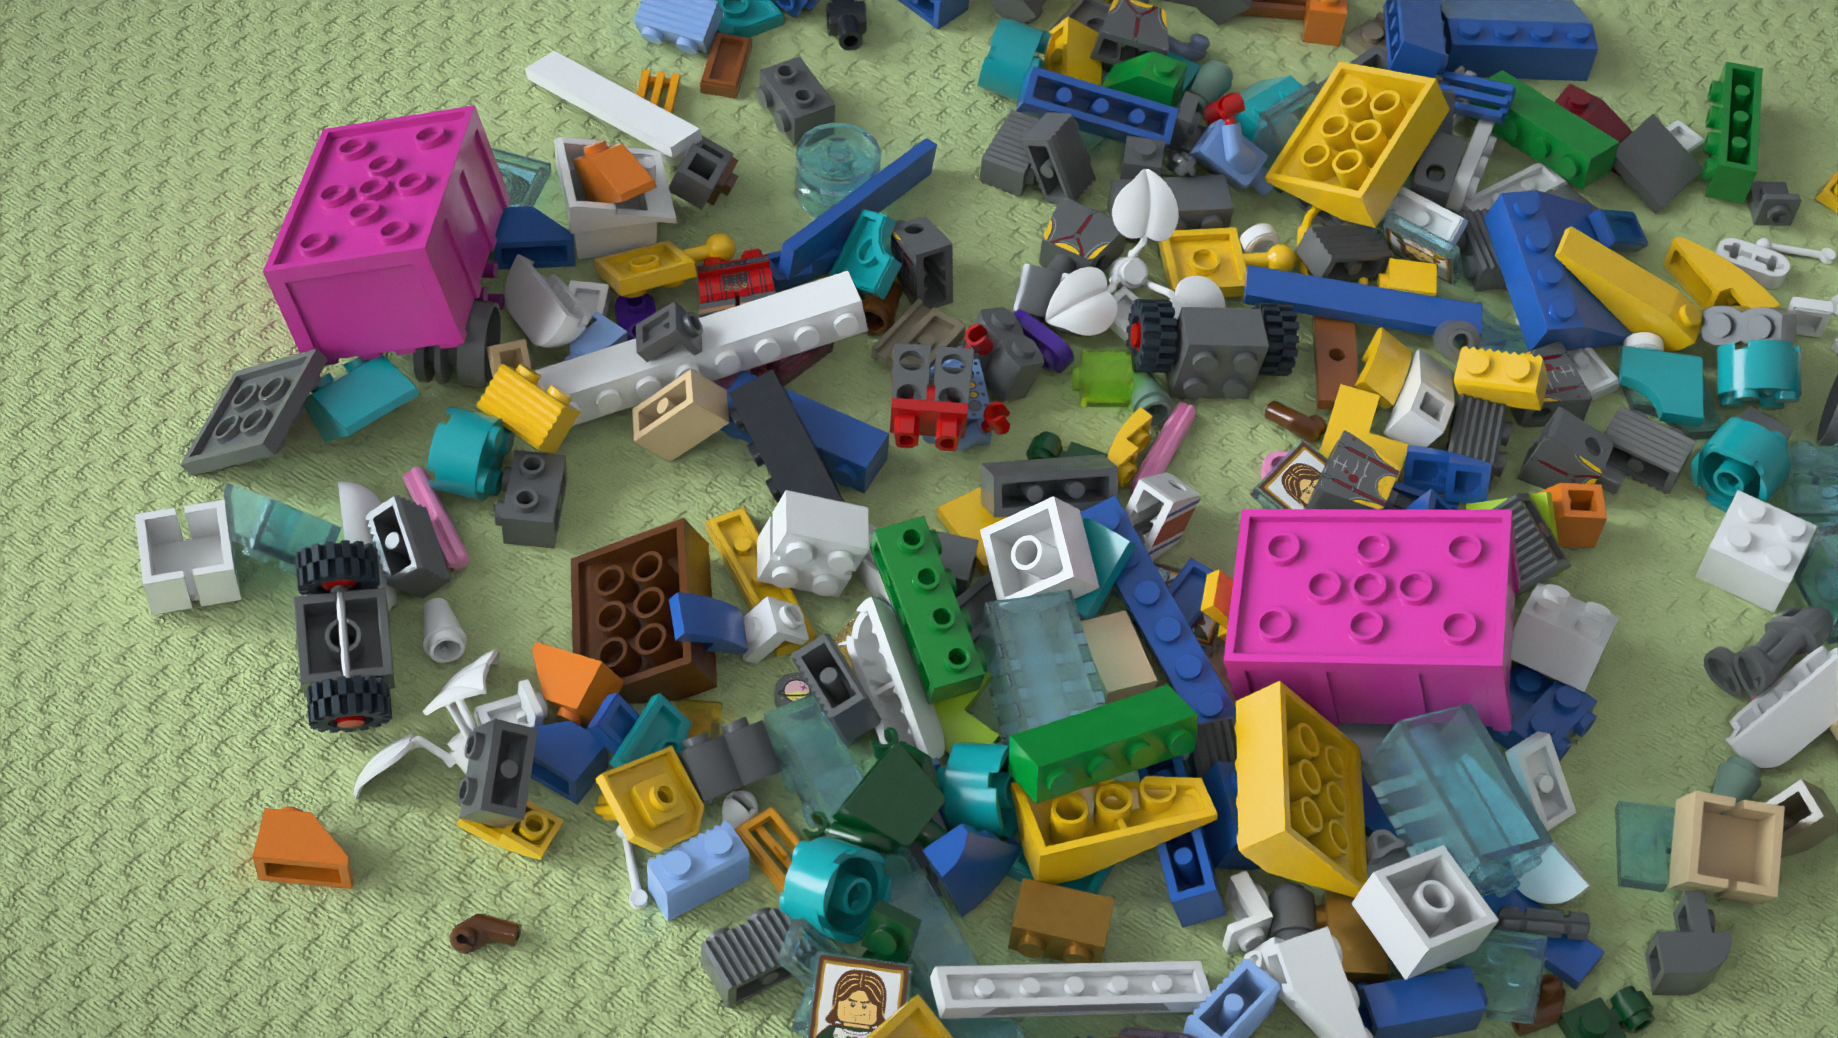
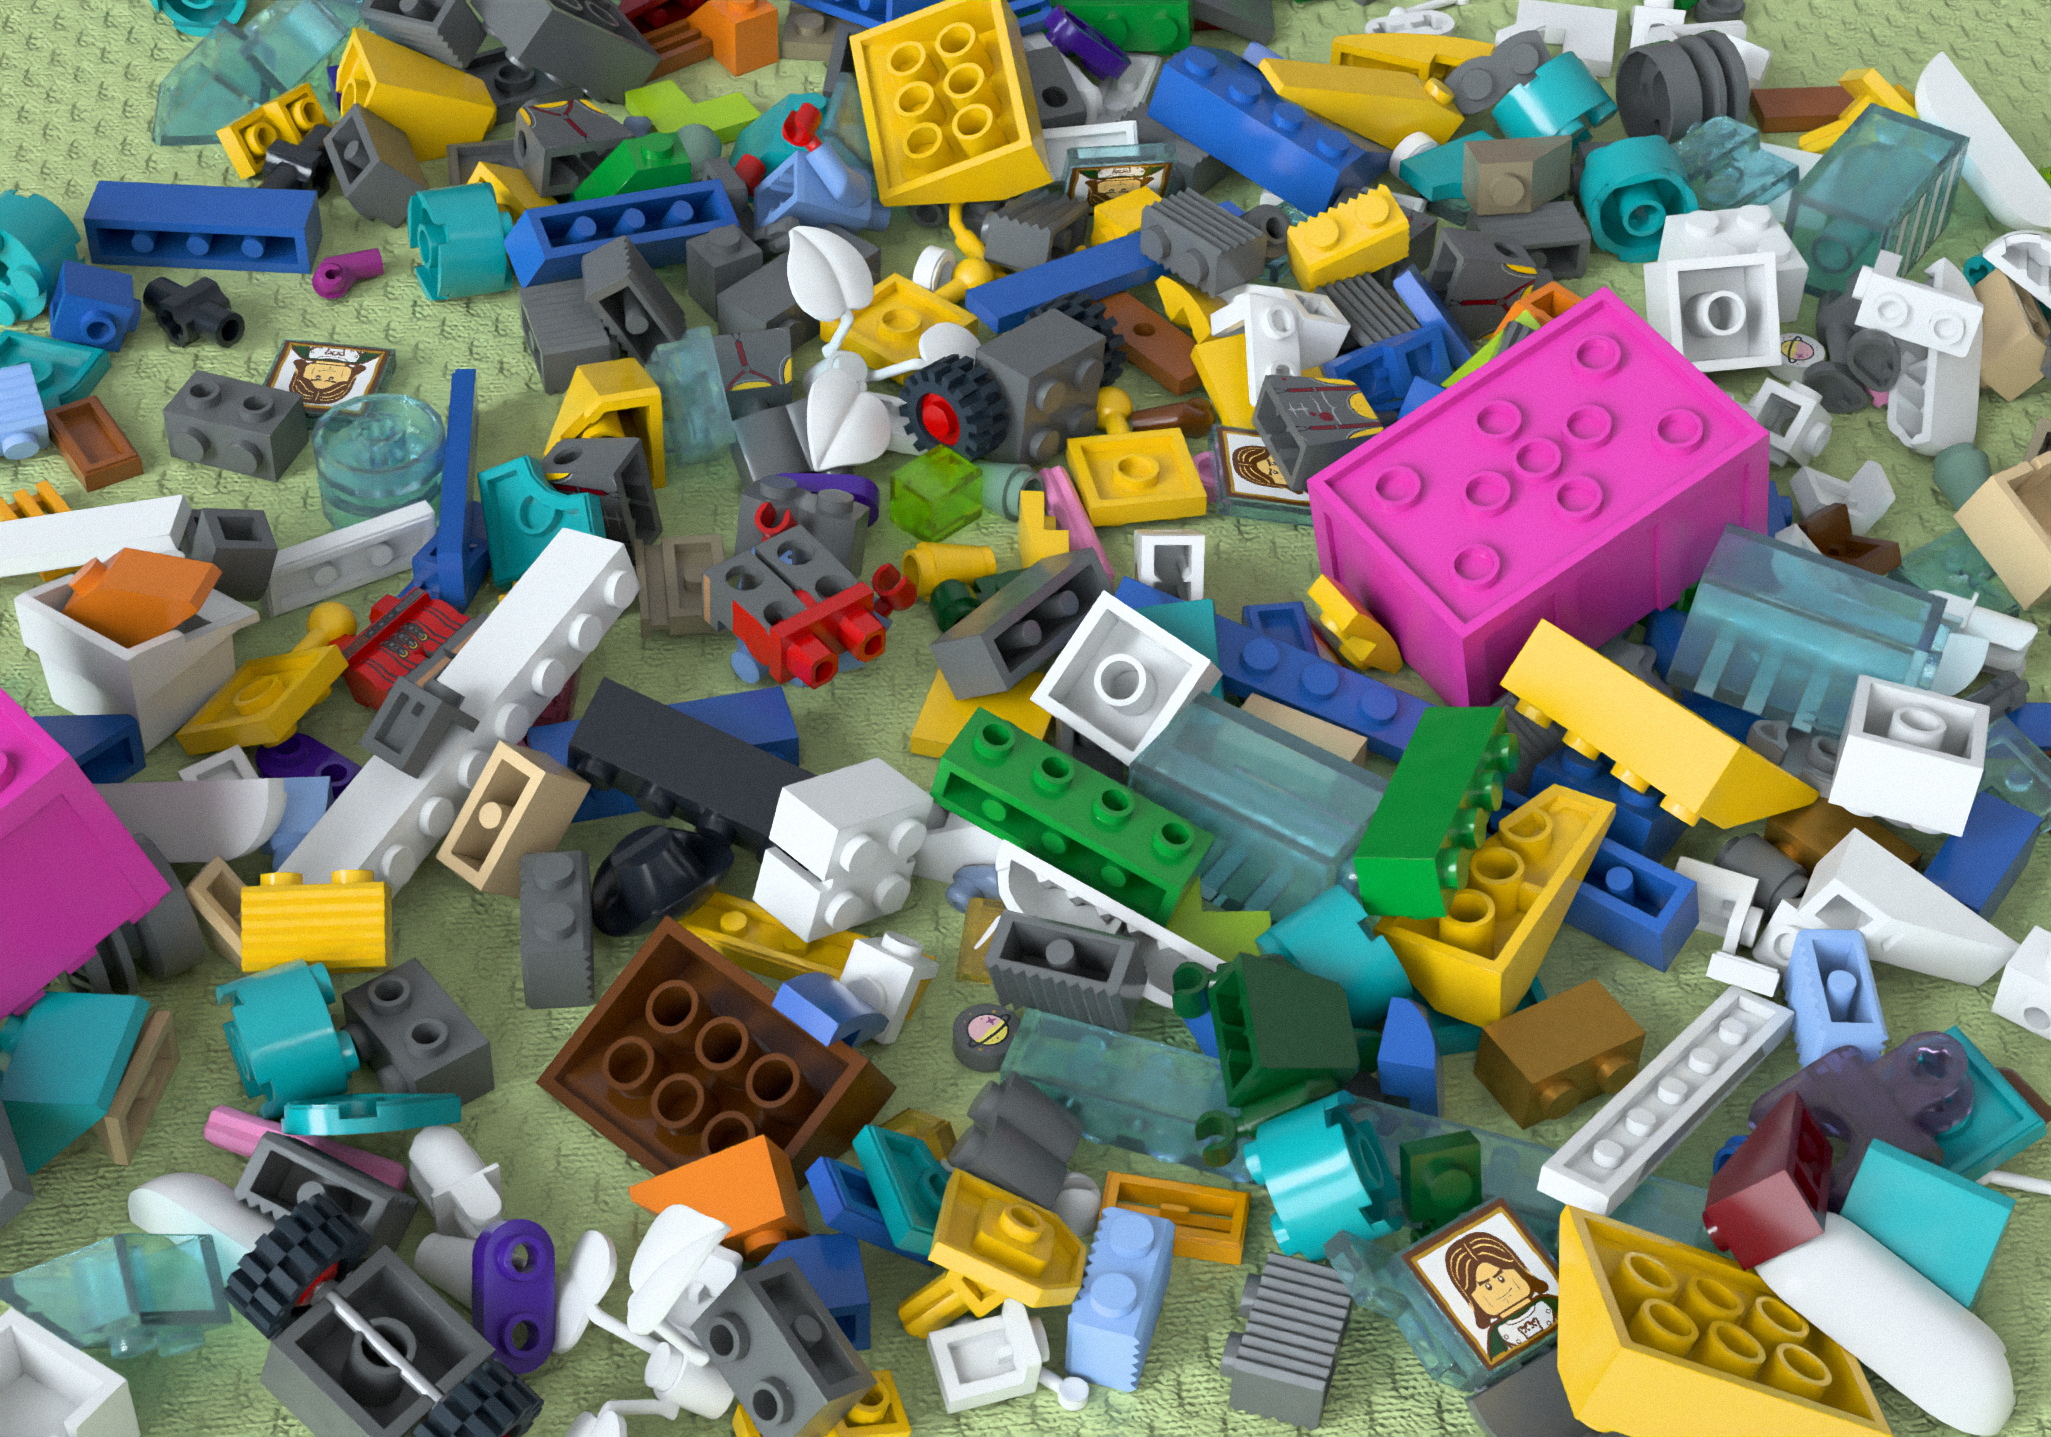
camera: 40 degrees left, 10 degrees down
(397, 431) = (140, 1088): none -> tan slope
(435, 656) = (507, 1296): none -> dark purple plate
(461, 517) = (369, 1113): none -> teal tile
(475, 587) = (454, 1183): none -> white arm
(606, 851) = (989, 1358): none -> white bracket
(653, 486) = (556, 929): none -> dark grey brick
(727, 495) = (654, 876): none -> black hat
(762, 212) = (348, 558): none -> white tile
(874, 102) = (329, 373): none -> tile
(948, 38) = (340, 272): none -> magenta arm
(979, 222) = (614, 402): none -> yellow slope
(1022, 236) = (693, 399): none -> clear light blue plate
(1065, 424) = (936, 562): none -> yellow cone
(1212, 958) = (1744, 973): none -> white tile
(1232, 48) = (672, 110): none -> lime tile
(1233, 438) = (1133, 473): none -> yellow plate
(1380, 409) = (1269, 332): none -> white bracket
(1411, 322) = (1202, 242): none -> dark grey brick
(1509, 147) = (1097, 51): none -> dark purple plate
(1510, 457) = (1430, 310): none -> blue tile
(1592, 771) = (1833, 537): none -> reddish brown bracket
(1610, 882) = (2007, 635): none -> white arm
(1633, 742) = (1865, 495): none -> white bracket
(1654, 671) = (1793, 406): none -> white brick
(1669, 401) = (1515, 173): none -> dark tan slope
(1684, 572) = (1717, 309): none -> white brick
(1733, 632) = (1797, 355): none -> white tile
(1793, 657) = (1914, 309): none -> white bracket

